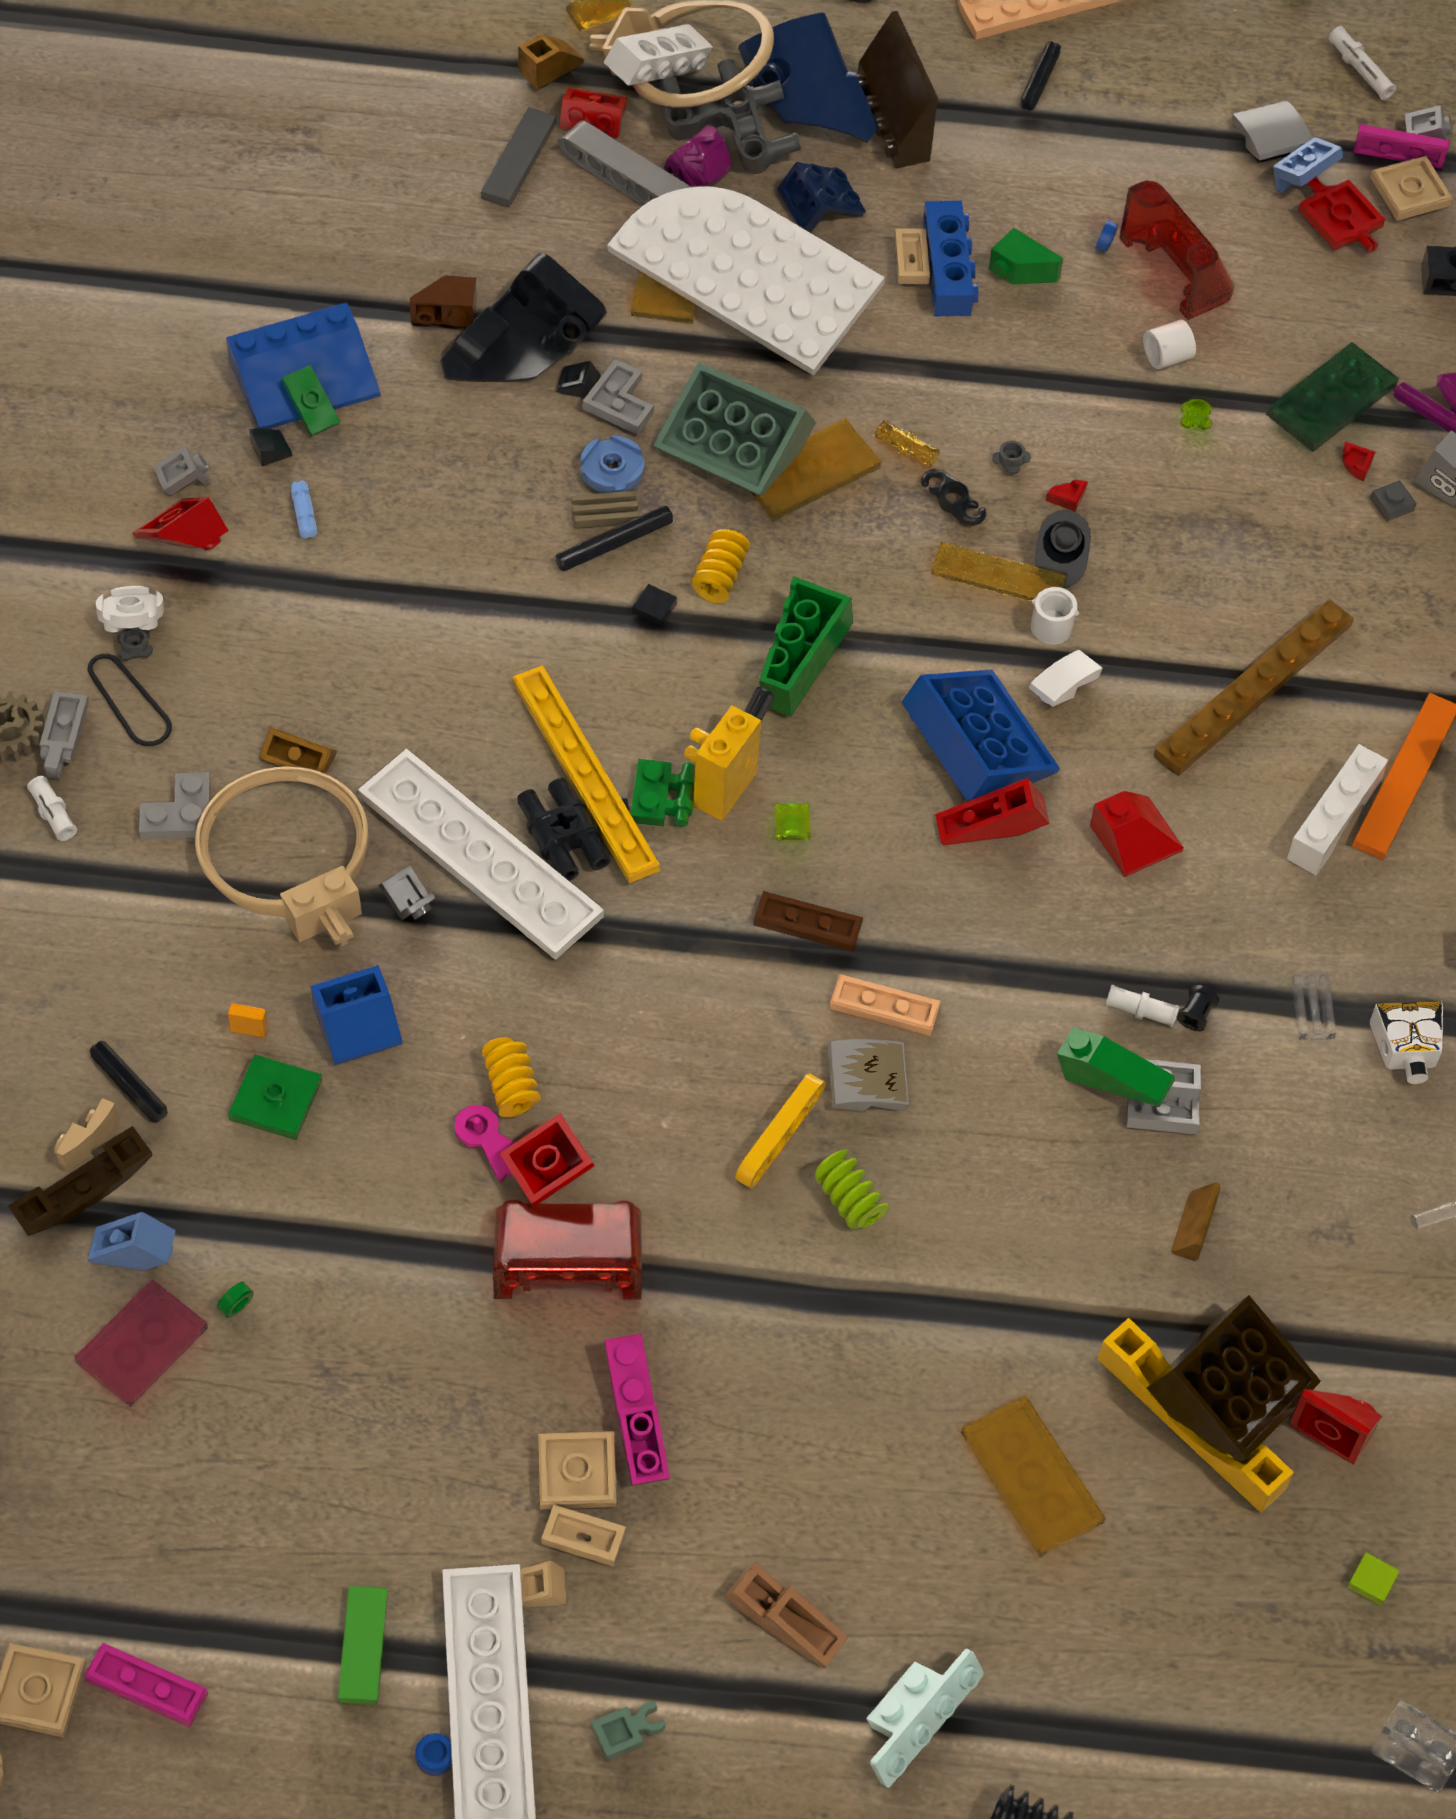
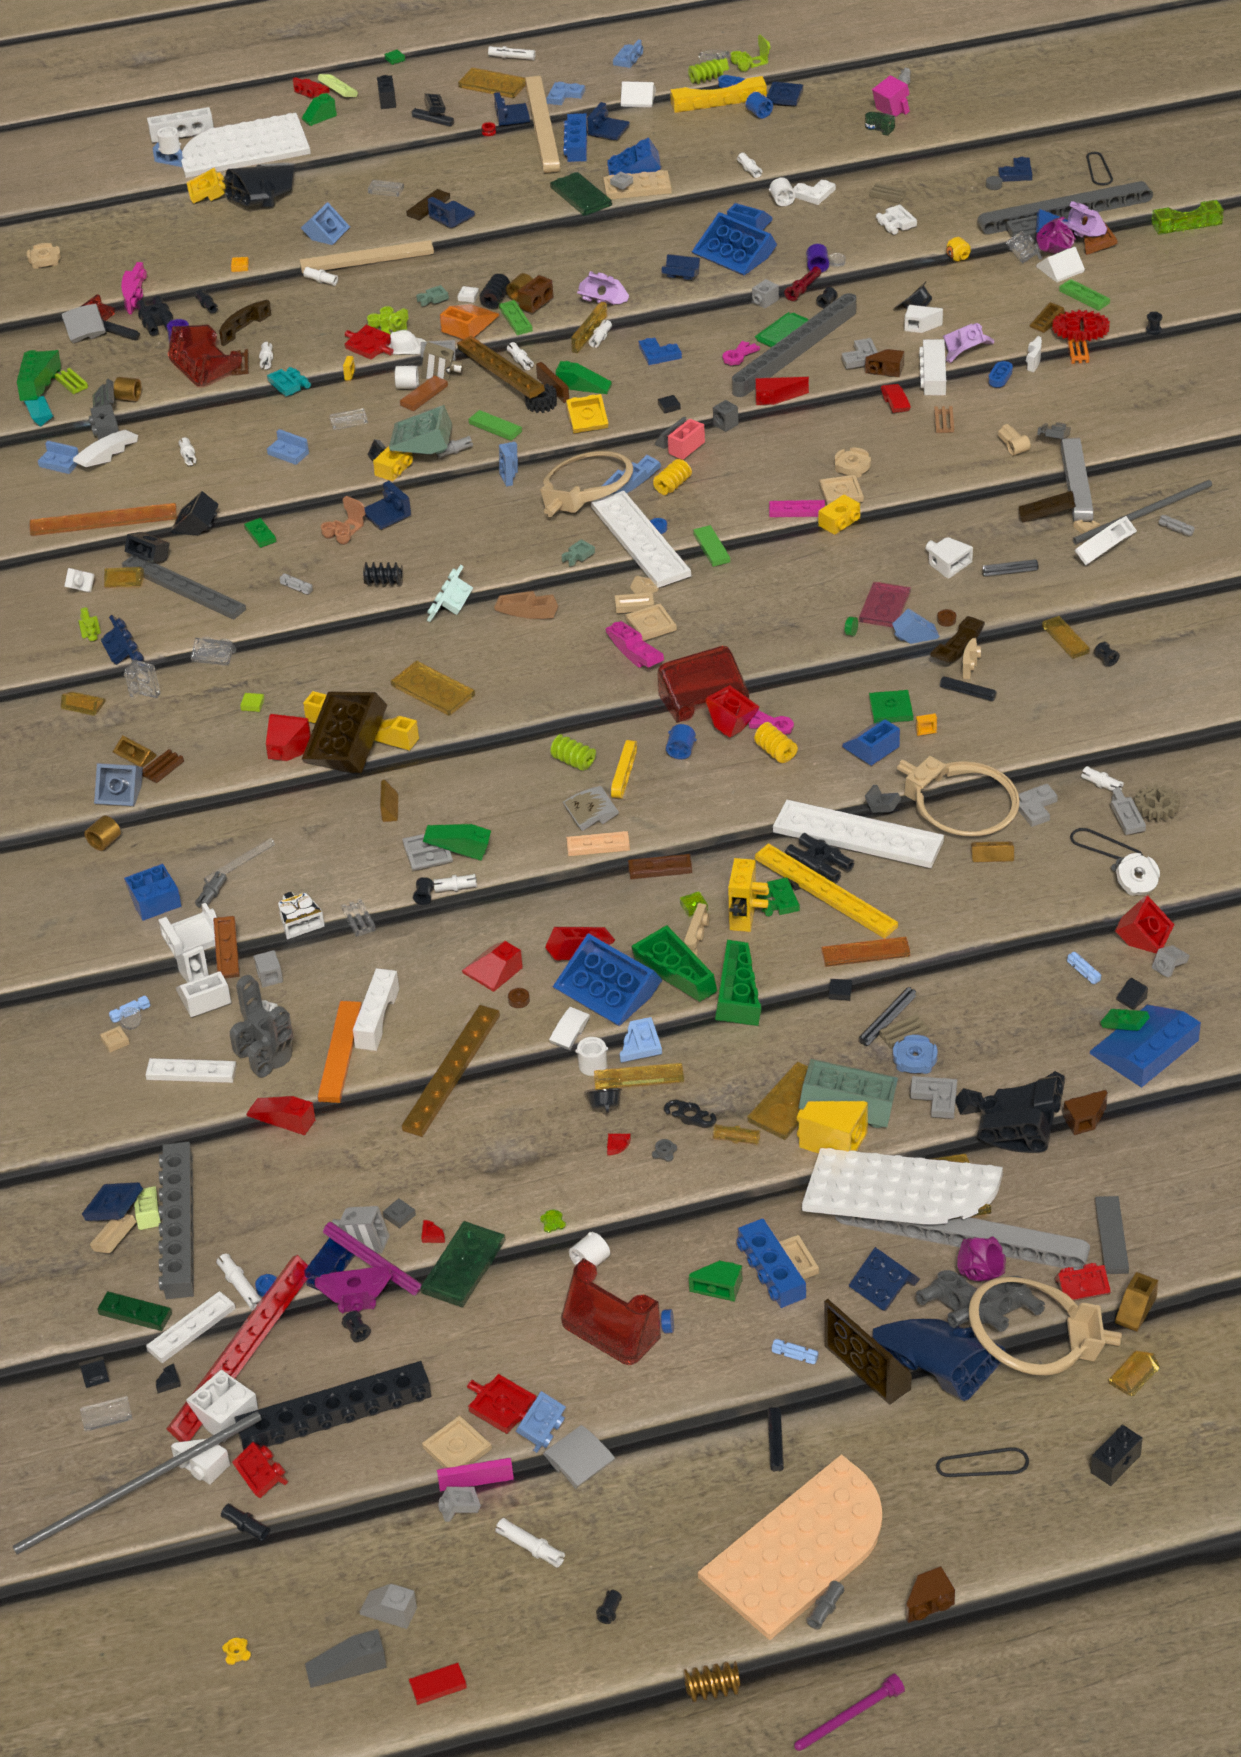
camera: 165 degrees right, 15 degrees down
(57, 1264) = (946, 618): none -> reddish brown tile
(74, 1629) = (839, 514): none -> yellow brick
(584, 653) = (865, 951): none -> clear orange tile
(658, 54) = (1051, 1346): white brick -> none
(664, 1142) = (680, 741): none -> blue piece
(720, 565) = (811, 1015): yellow piece -> none
(789, 370) = (832, 1125): none -> yellow slope
(814, 766) = (696, 927): none -> tan plate
(873, 719) = (675, 963): none -> green wedge
(970, 158) = (795, 1351): none -> light blue axle
(974, 623) = (640, 1041): none -> light blue wing
(1116, 768) = (518, 998): none -> reddish brown tile

